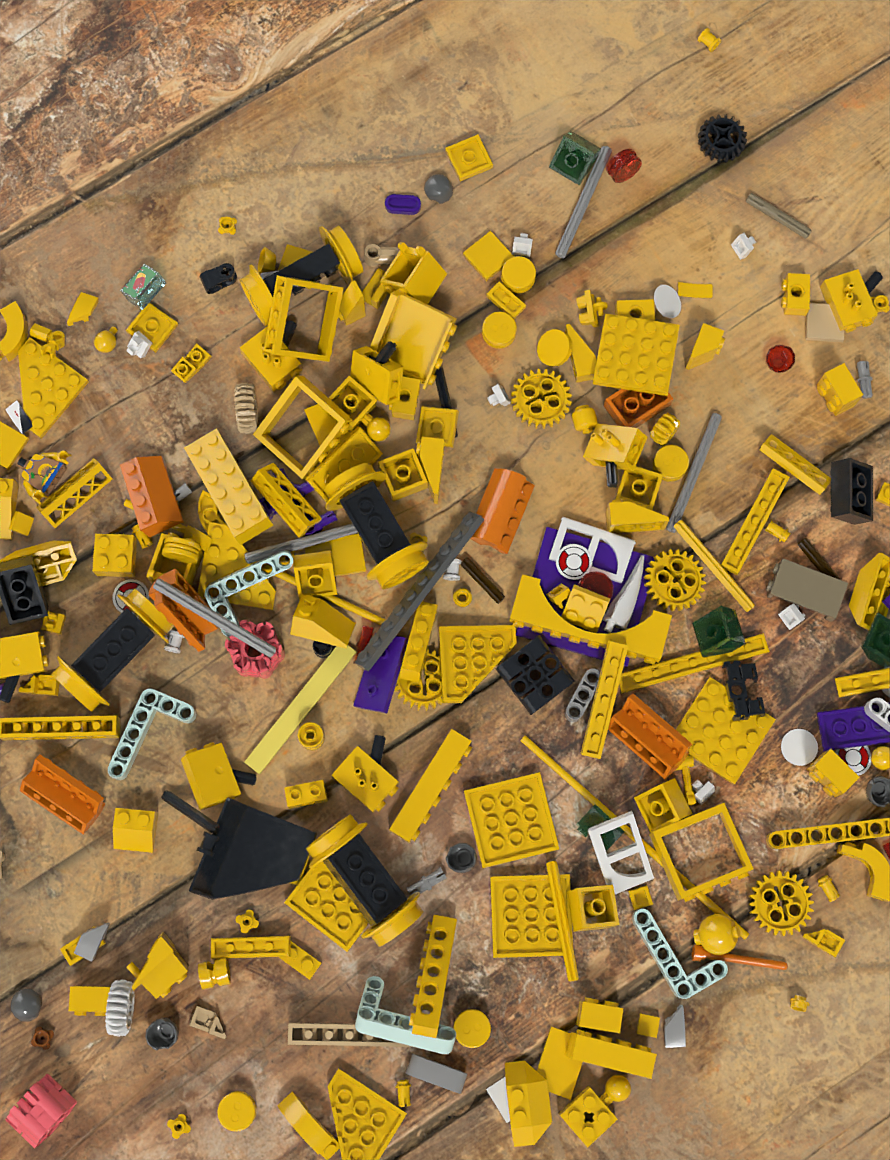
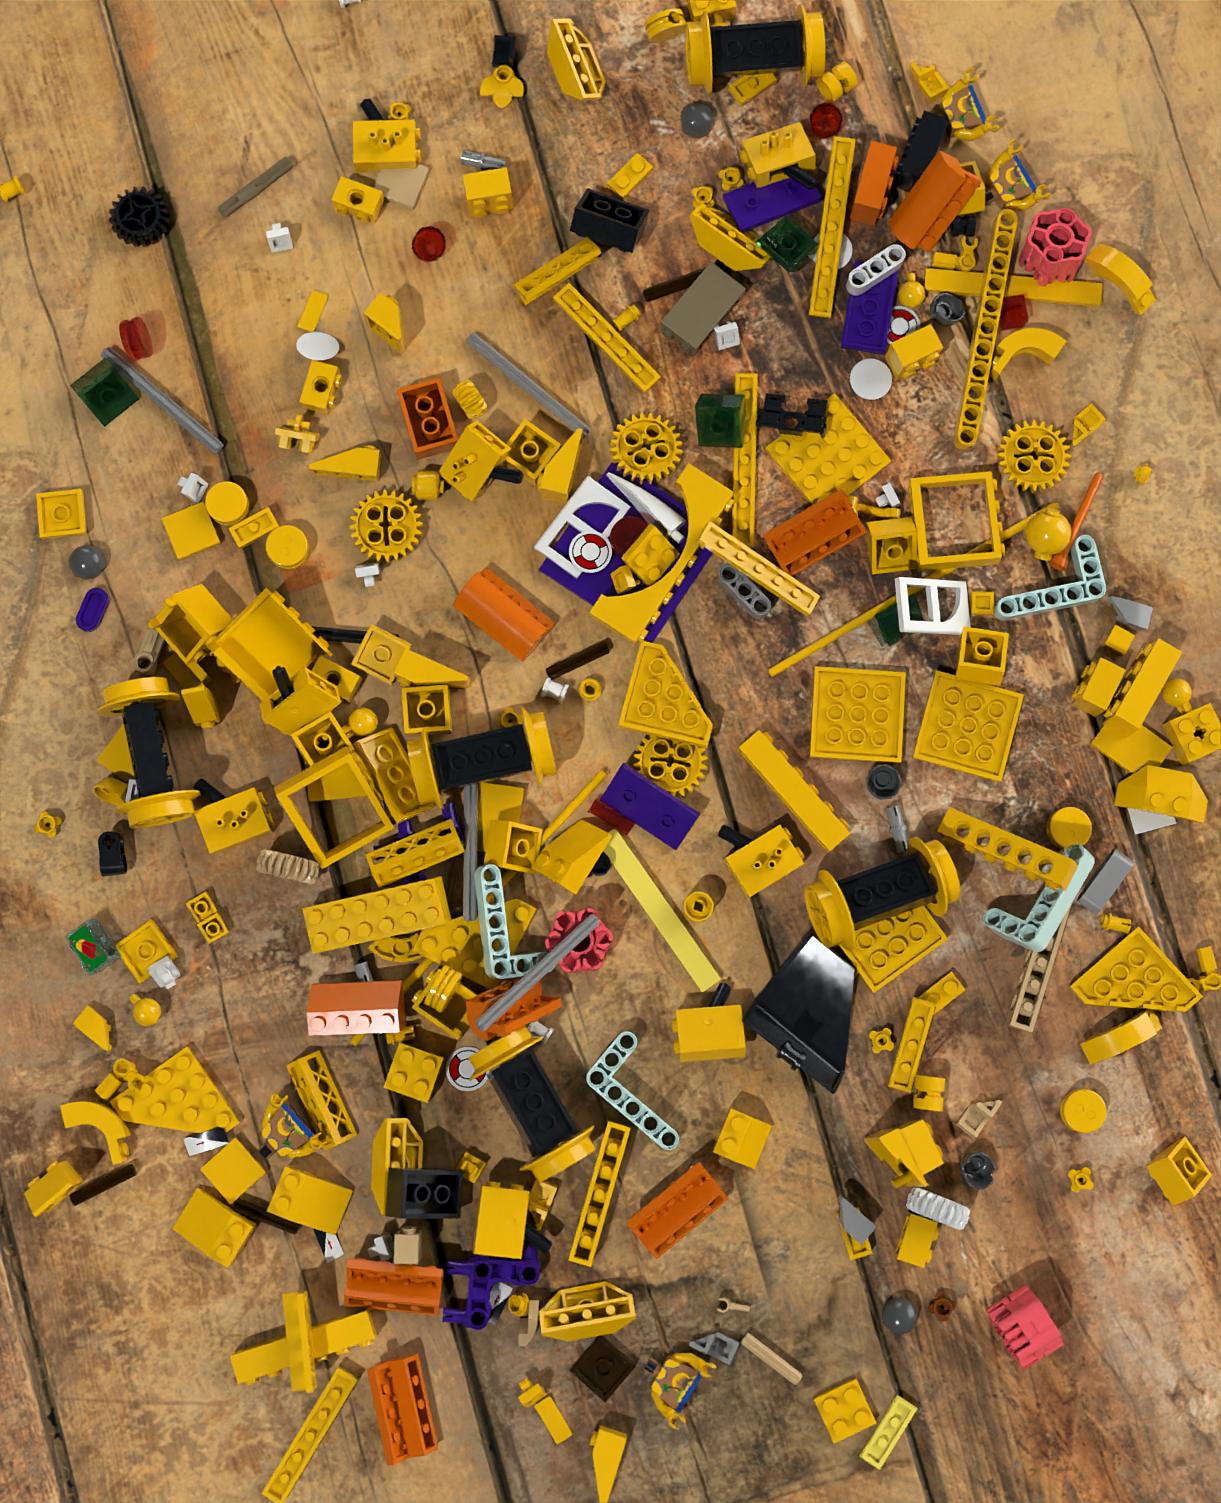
camera: 75 degrees left, 5 degrees up
(21, 523) = (339, 1173): yellow tile -> none
(190, 812) = (743, 1067): black axle -> none
(201, 538) = (423, 969): yellow sticker -> none
(279, 315) = (190, 787): yellow window -> none
(305, 794) = (760, 932): yellow brick -> none
(418, 591) = (570, 734): dark grey plate -> none
(419, 642) = (629, 752): yellow brick -> none
(512, 667) = (727, 647): black connector -> none
(554, 347) = (331, 491): yellow tile -> none
(562, 921) = (984, 693): yellow axle -> none
(636, 354) = (373, 400): yellow plate -> none
(671, 462) = (509, 407): yellow head -> none
(714, 565) = (642, 400): yellow axle -> none
(828, 888) = (1026, 402): yellow pin -> none

